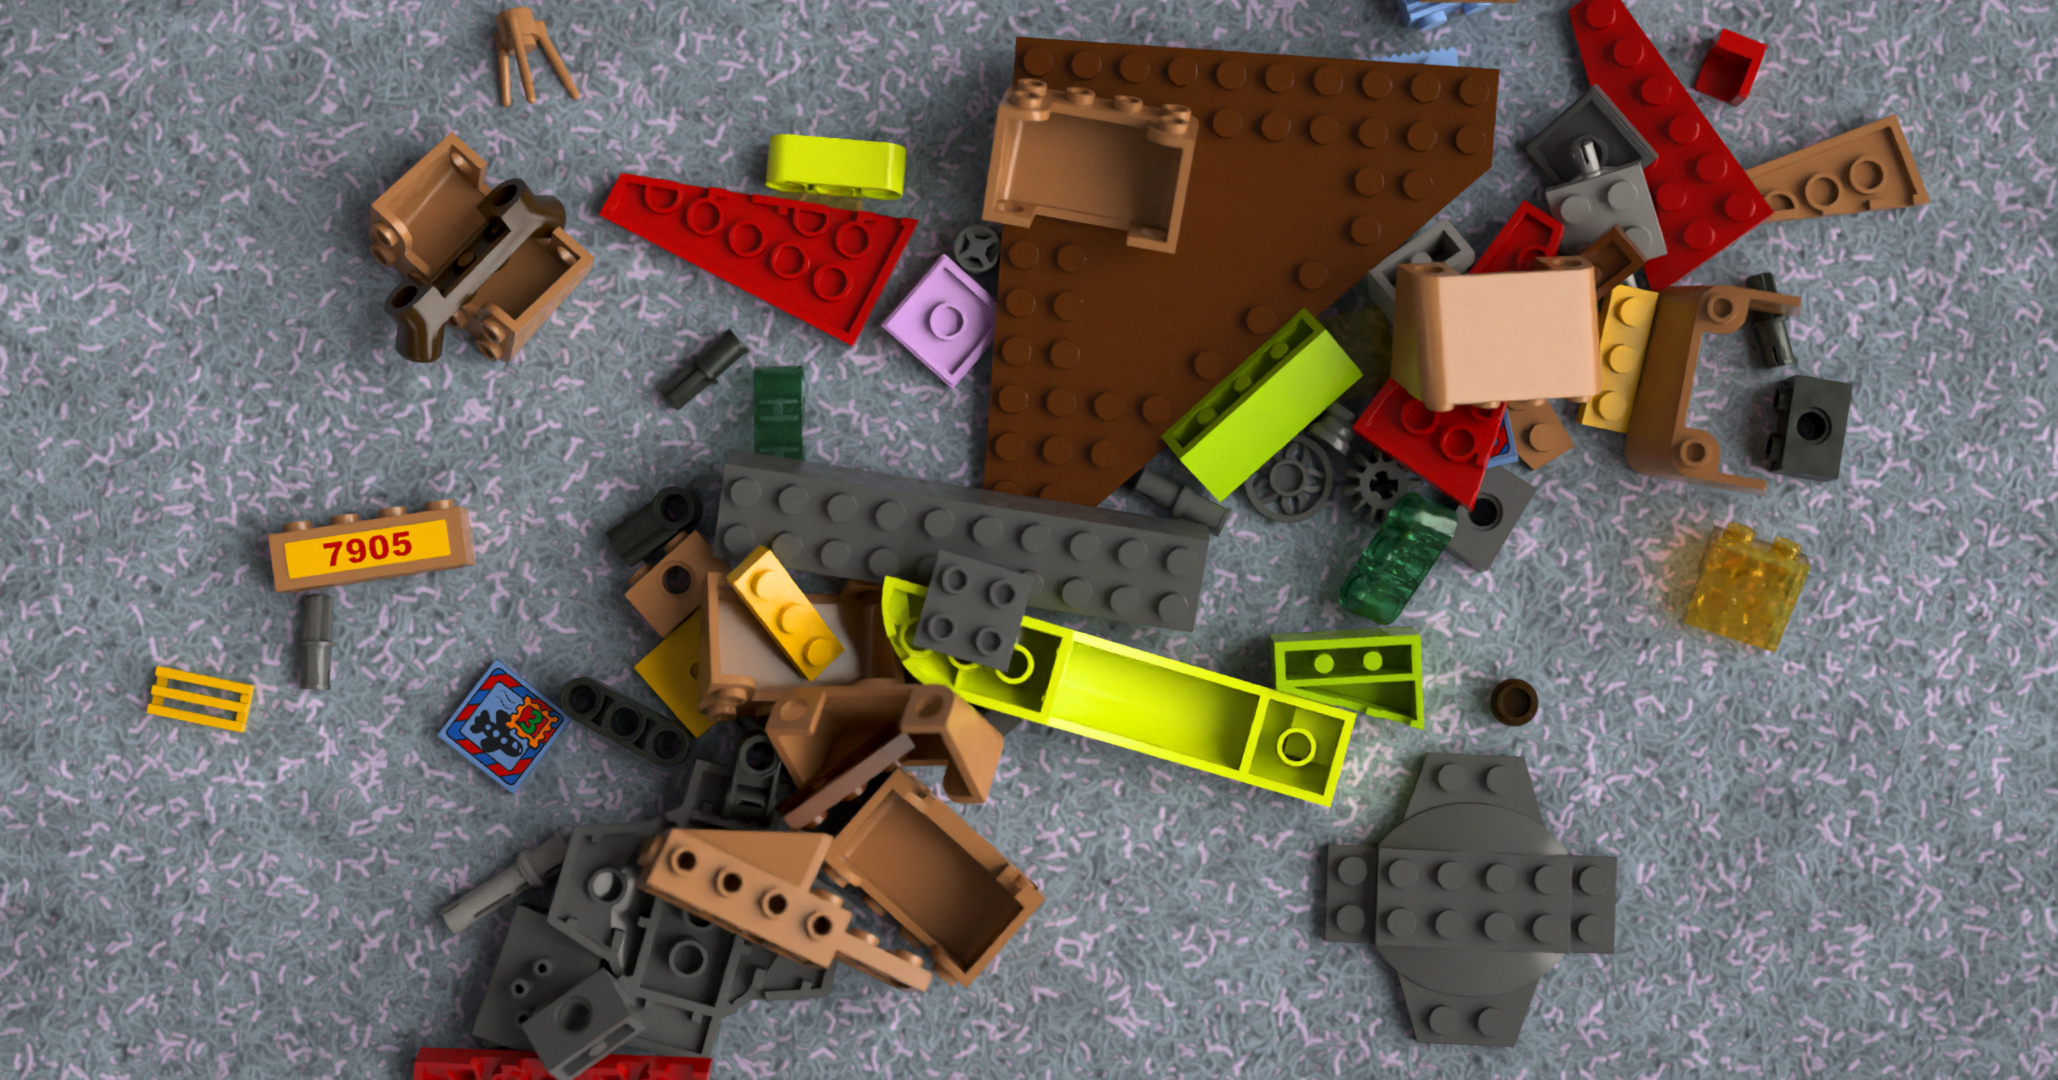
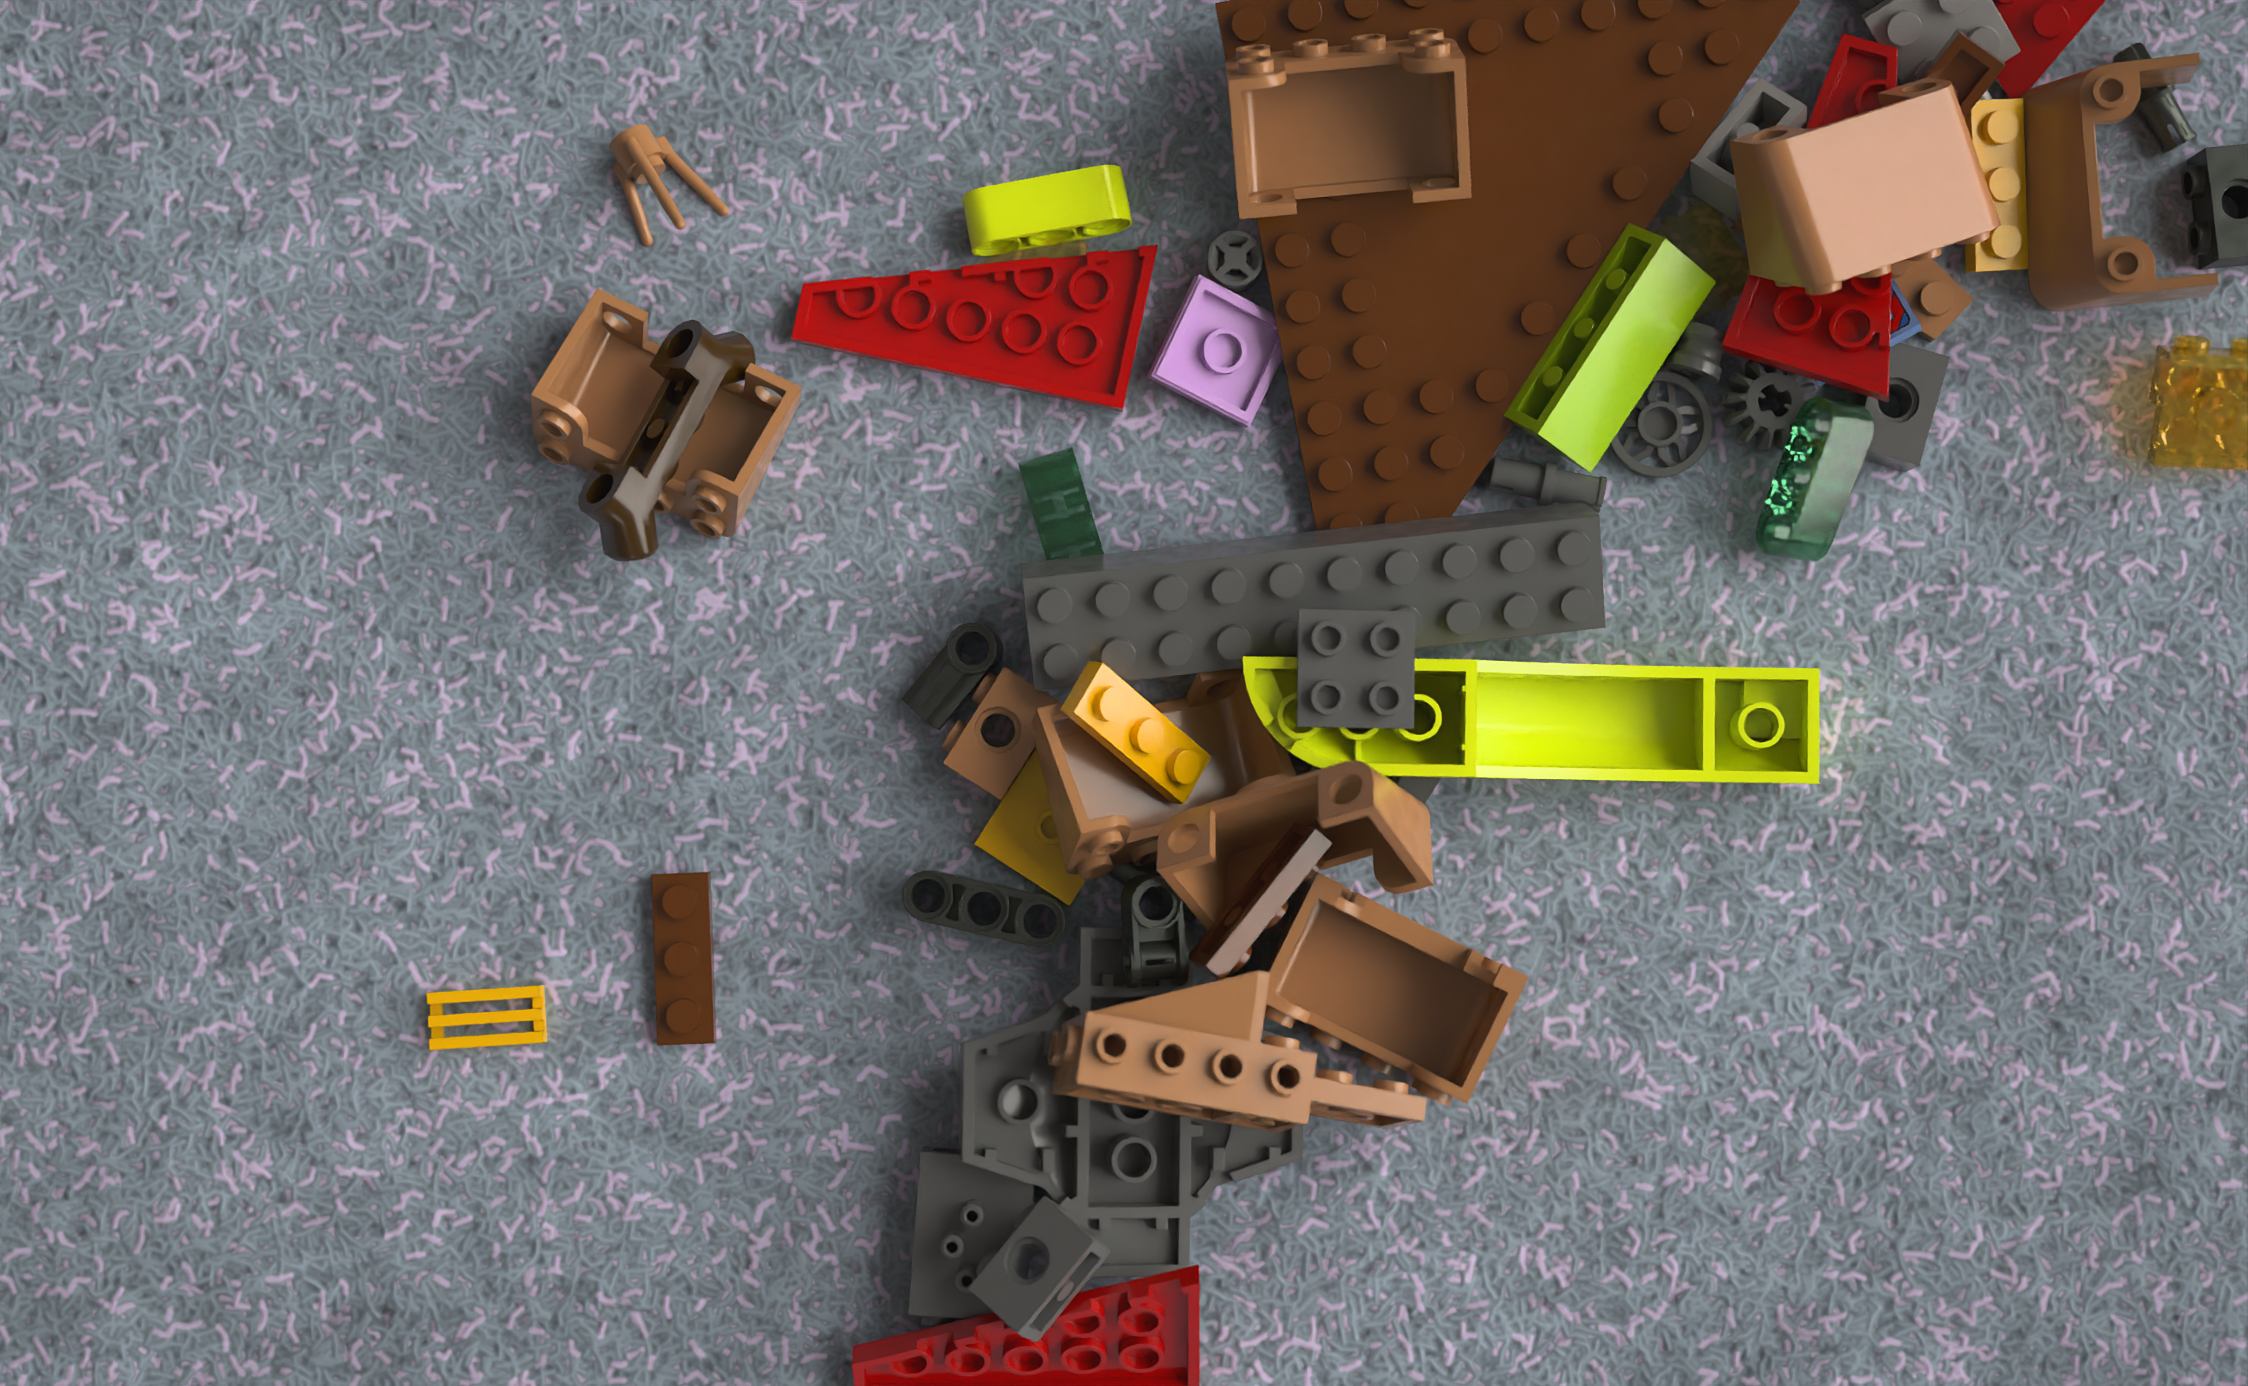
camera: 20 degrees left, 0 degrees up
(317, 642) = (603, 915): dark grey axle -> none
(372, 548) = (636, 791): brick -> none
(373, 695) = (683, 958): none -> reddish brown plate
(505, 726) = (845, 952): tile -> none
(530, 870) = (921, 1108): light grey pin -> none
(703, 370) = (959, 483): pearl dark grey axle -> none
(1354, 669) = (1799, 619): lime wedge -> none
(1470, 899) = (1999, 846): dark grey plate -> none
(1514, 702) = (1986, 608): dark brown plate -> none

